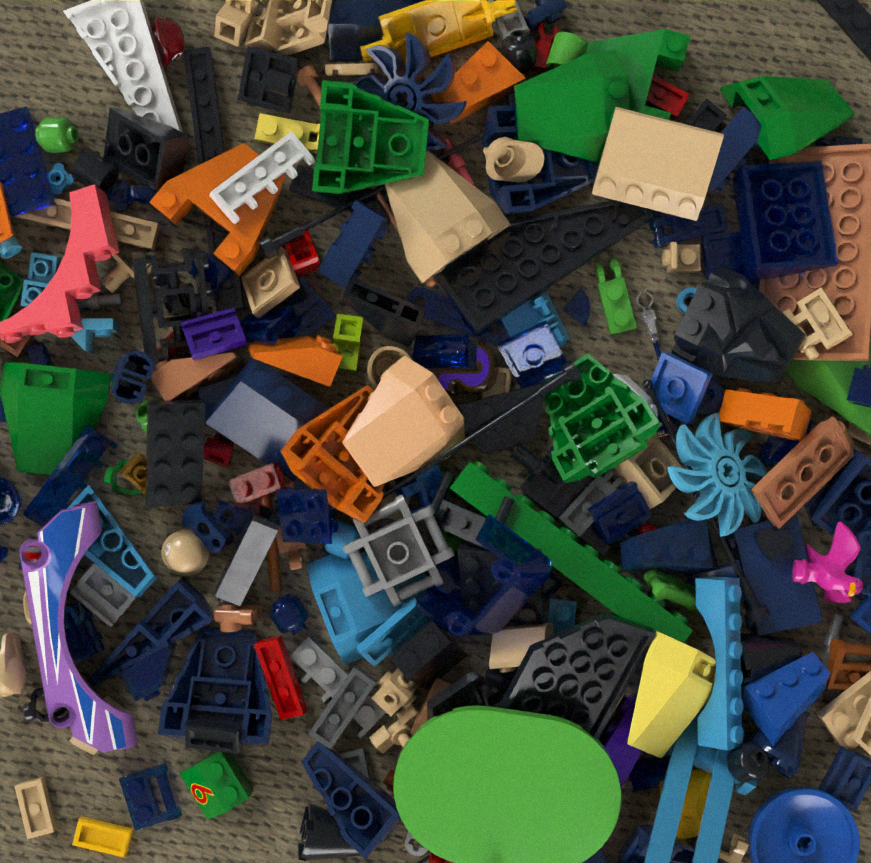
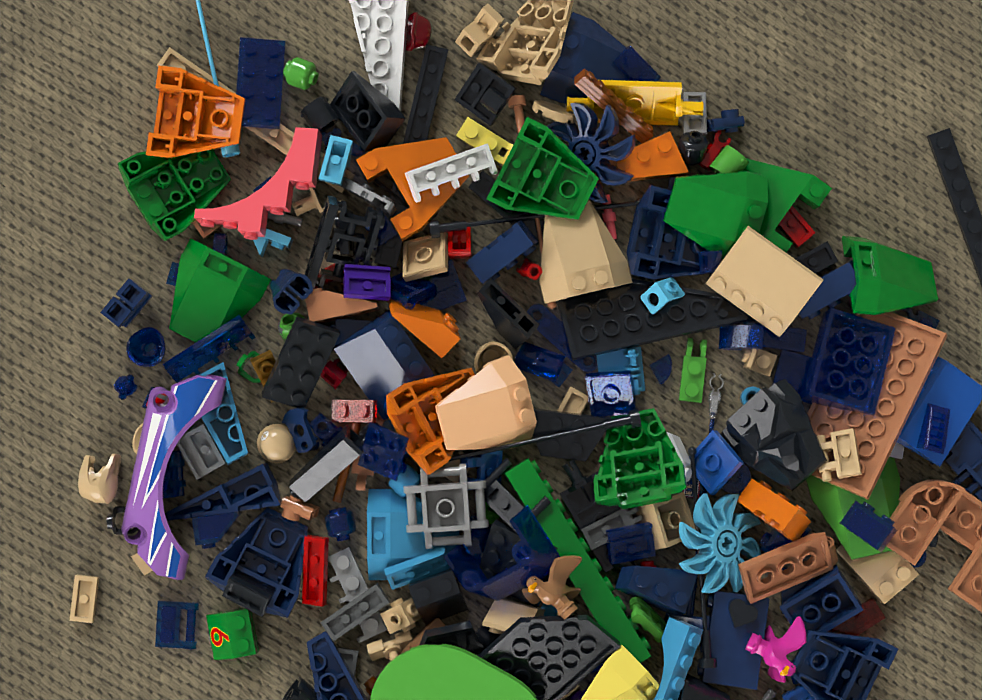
camera: 15 degrees right, 0 degrees up
(41, 271) = (244, 182): medium azure slope -> none
(65, 179) = (294, 110): dark azure plate -> none
(102, 836) = (127, 641): yellow tile -> none
(129, 211) = (336, 160): none -> medium azure slope
(174, 237) = (367, 194): none -> dark grey wing
(348, 340) = (468, 325): lime slope -> none
(391, 252) = (529, 270): none -> red bar
(396, 27) = (602, 96): none -> dark orange piece
(471, 380) = (553, 394): dark brown animal -> none
(513, 160) = (652, 234): tan piece -> none
(551, 217) = (665, 290): none -> medium azure bracket
(558, 599) = (555, 591): none -> medium nougat animal
(586, 167) = (709, 260): none -> clear blue tile
(653, 238) = (741, 337): none -> clear blue slope

